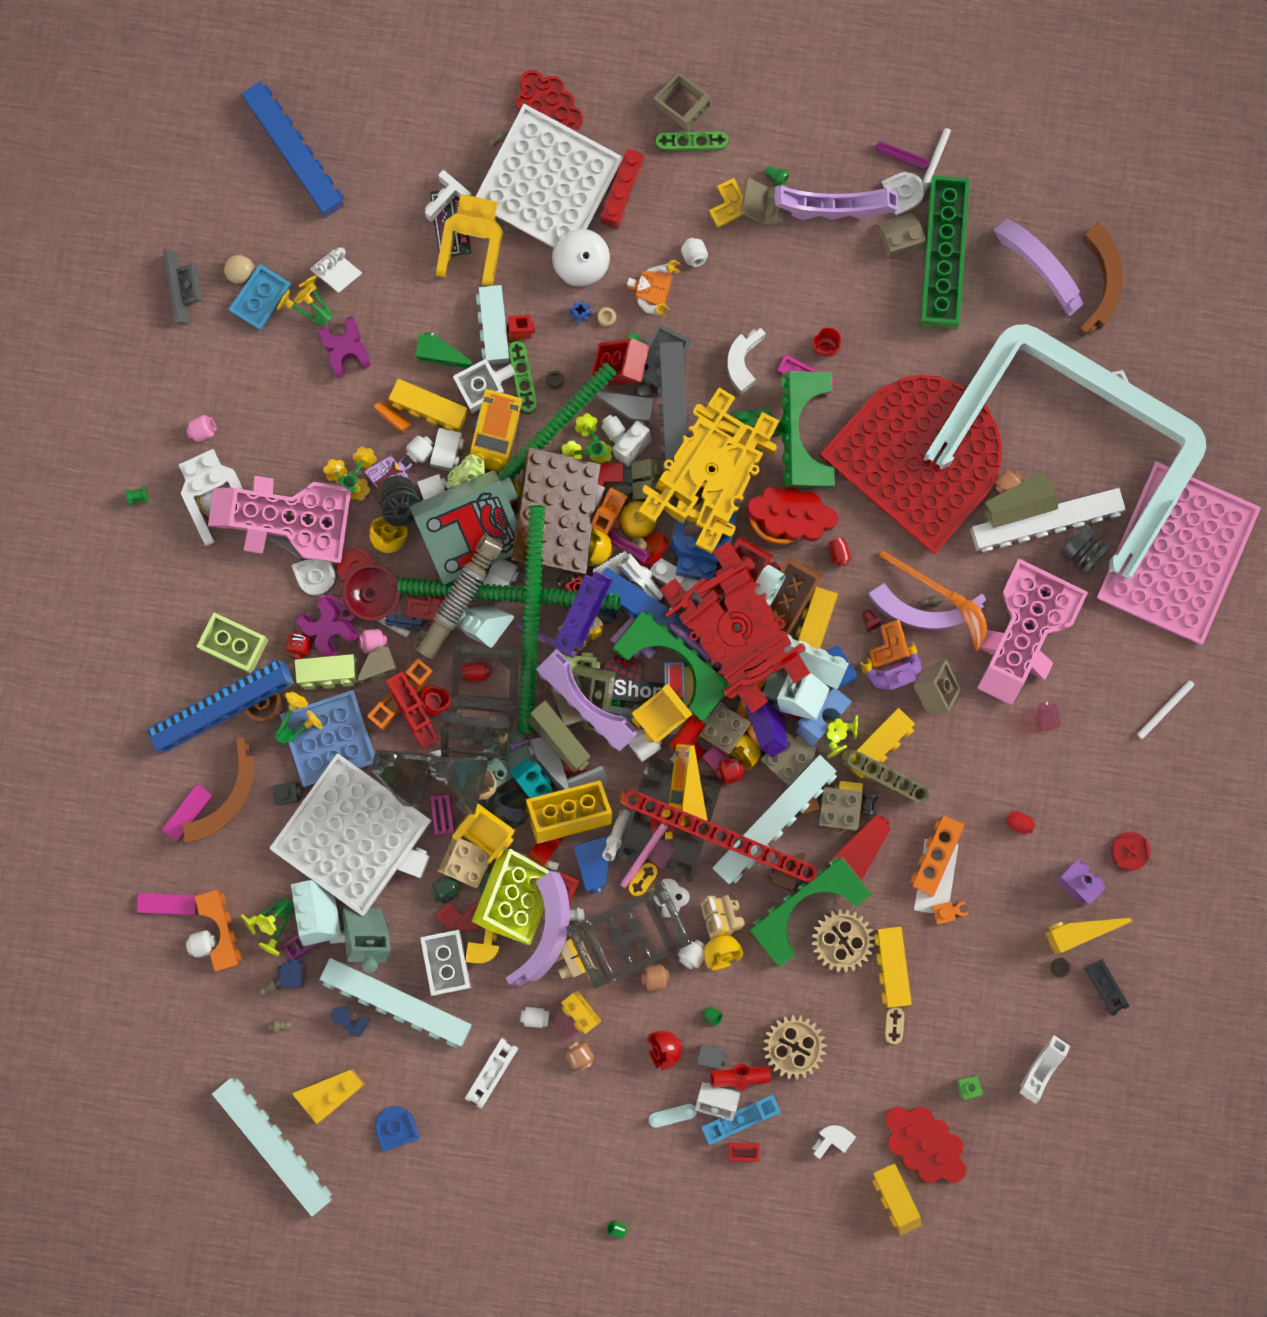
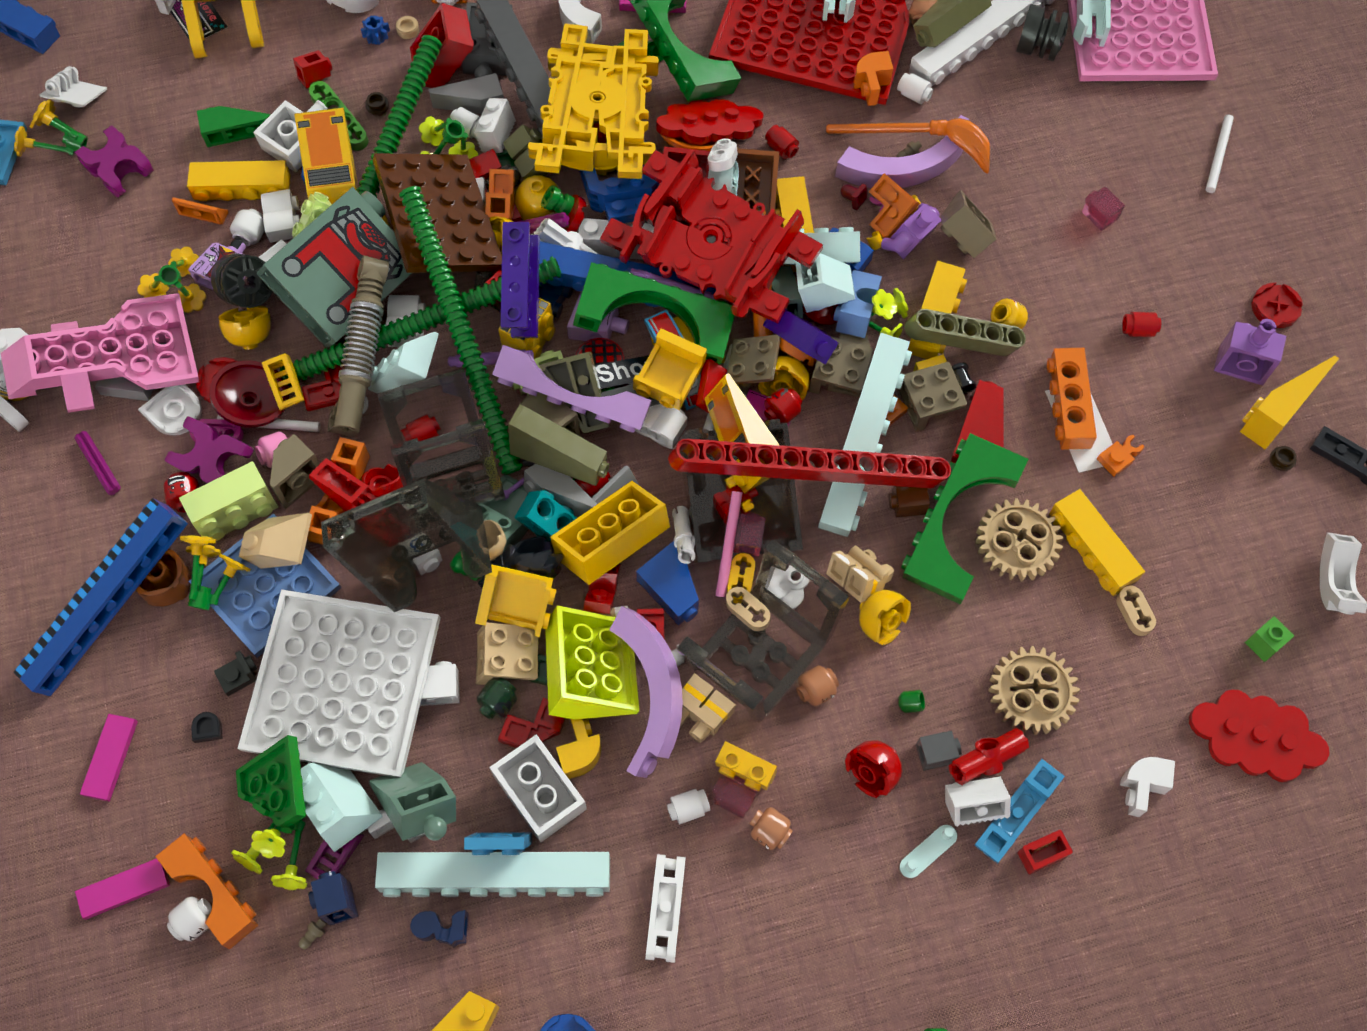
camera: 25 degrees left, 15 degrees down
(222, 816) = (160, 733): dark orange arch -> none
(232, 643) = (89, 520): yellowish green brick -> none
(250, 595) = (97, 463): none -> magenta axle
(254, 820) = (206, 727): none -> black tile
(279, 1026) = (342, 983): dark tan piece -> none
(283, 885) = (274, 783): none -> green plate
(348, 716) = (276, 541): none -> tan slope
(403, 595) = (269, 367): none -> yellow slope
(404, 622) = (306, 413): dark blue axle -> none
(405, 988) = (509, 842): none -> dark azure plate
(434, 815) = (440, 594): dark pink tile -> none
(494, 325) = (279, 73): light aqua brick -> none
(630, 909) = (751, 604): none -> tan beam
(647, 536) = (557, 201): none -> green wheel
(692, 955) = (849, 636): white head -> none
(775, 567) = (722, 155): none -> white plate
(897, 1199) = (1271, 817): yellow wedge -> none
(927, 773) = (1009, 313): none -> yellow head
(932, 527) = (871, 73): none -> orange brick
(964, 550) = (915, 88): none -> white brick
(1017, 648) = (1029, 108): bright pink piece -> none

